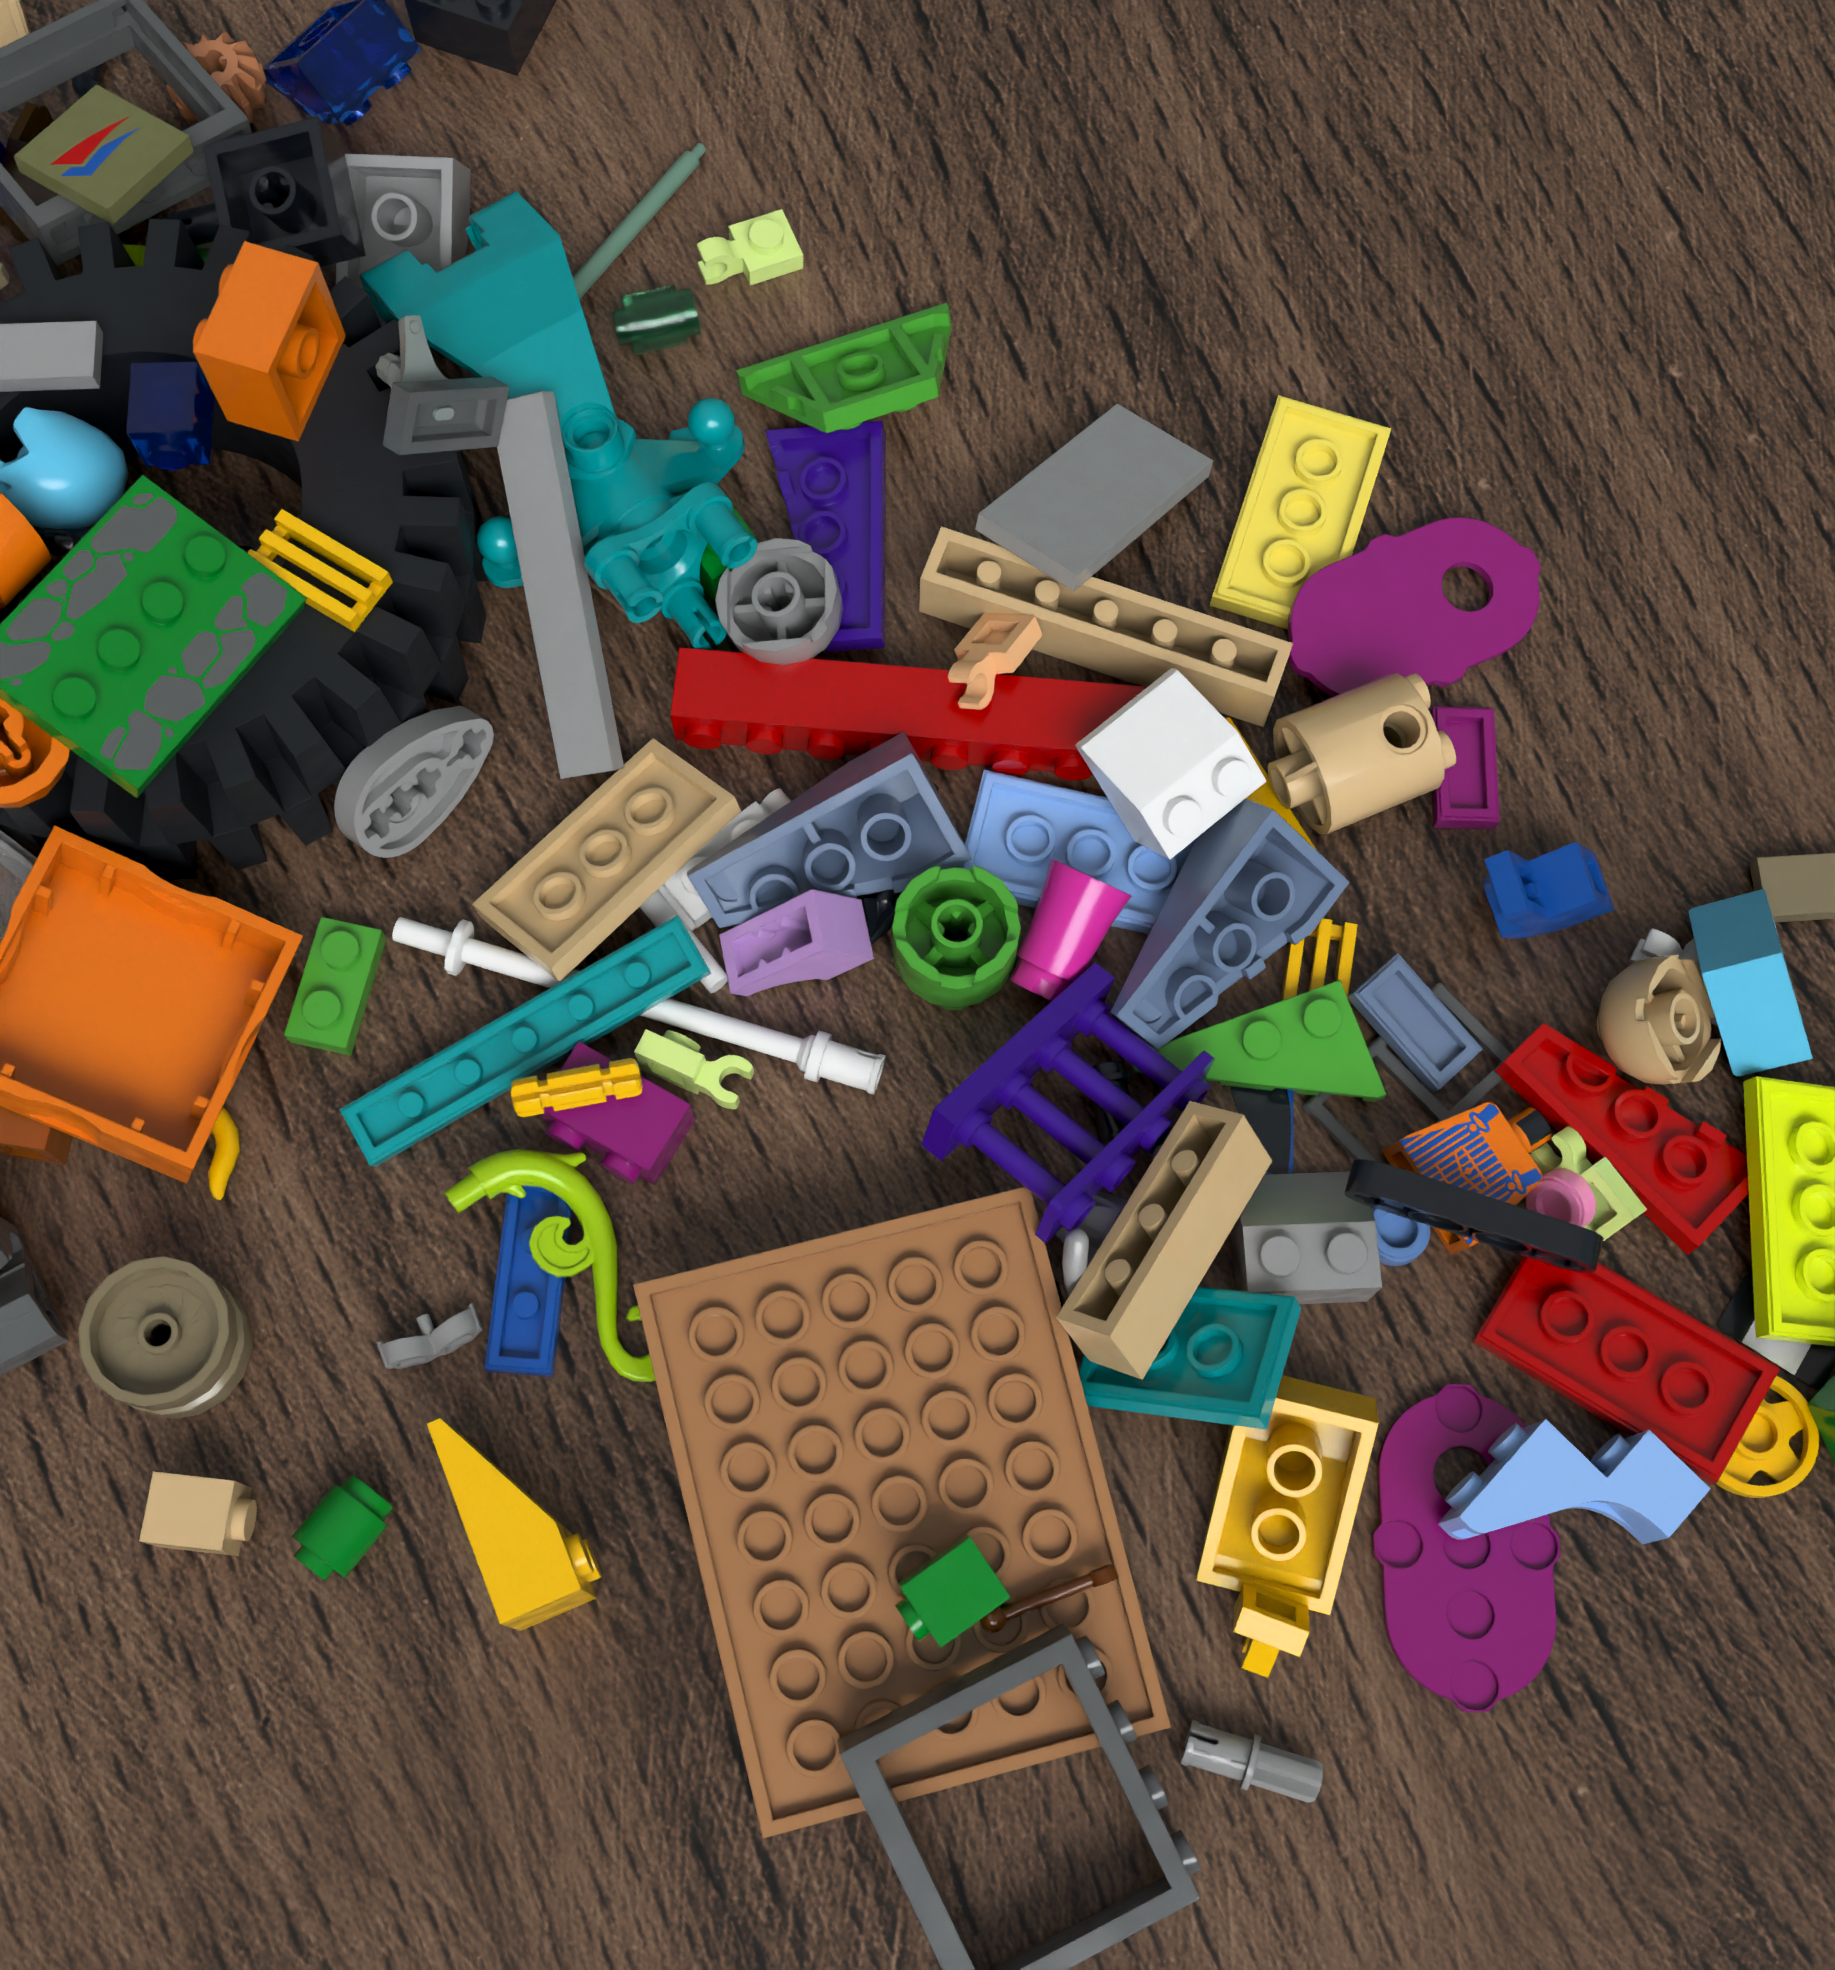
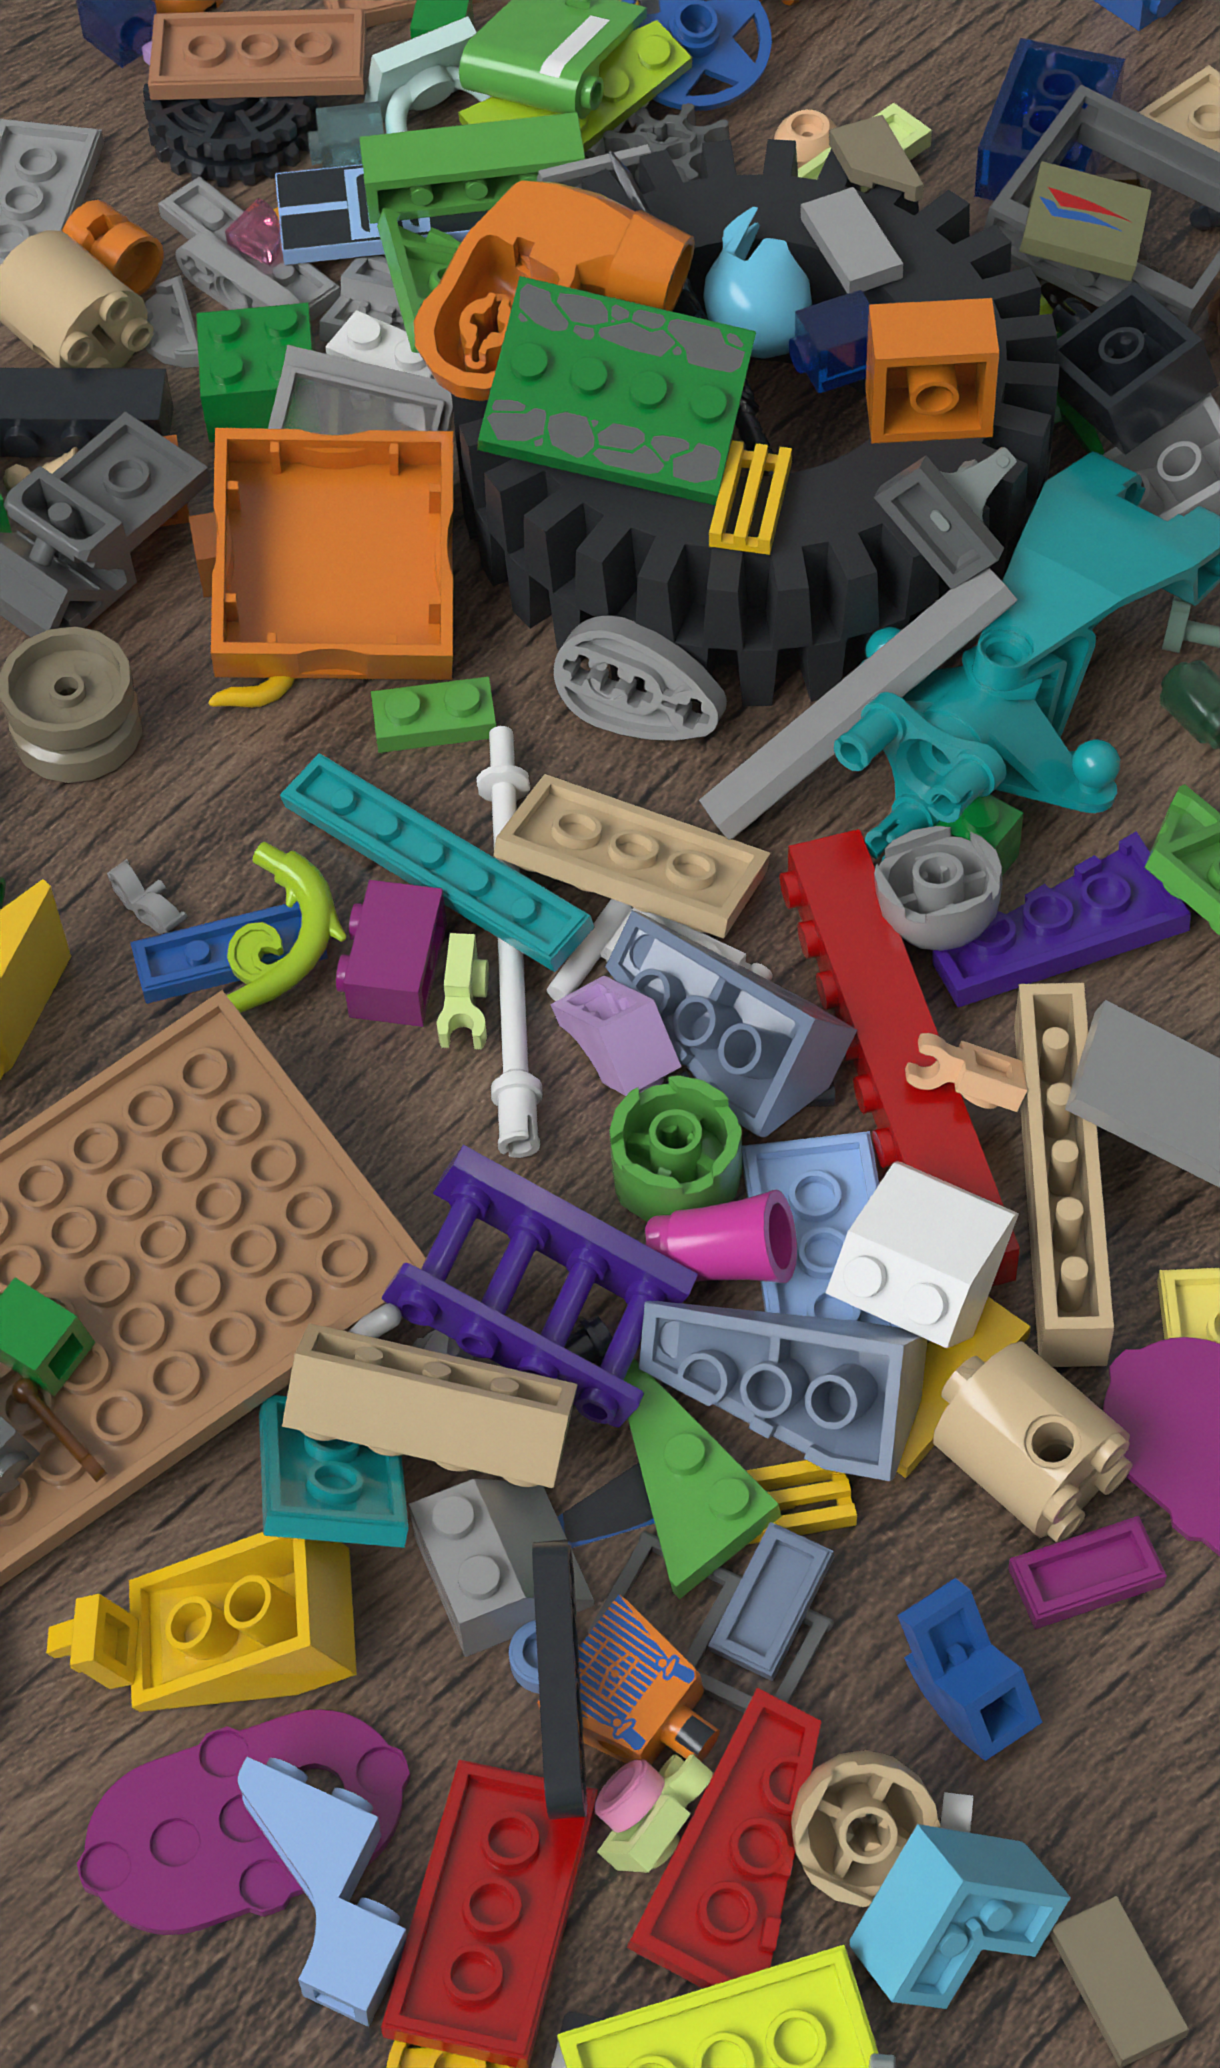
camera: 75 degrees right, 15 degrees down
(576, 1087) = (393, 896): yellow axle -> none

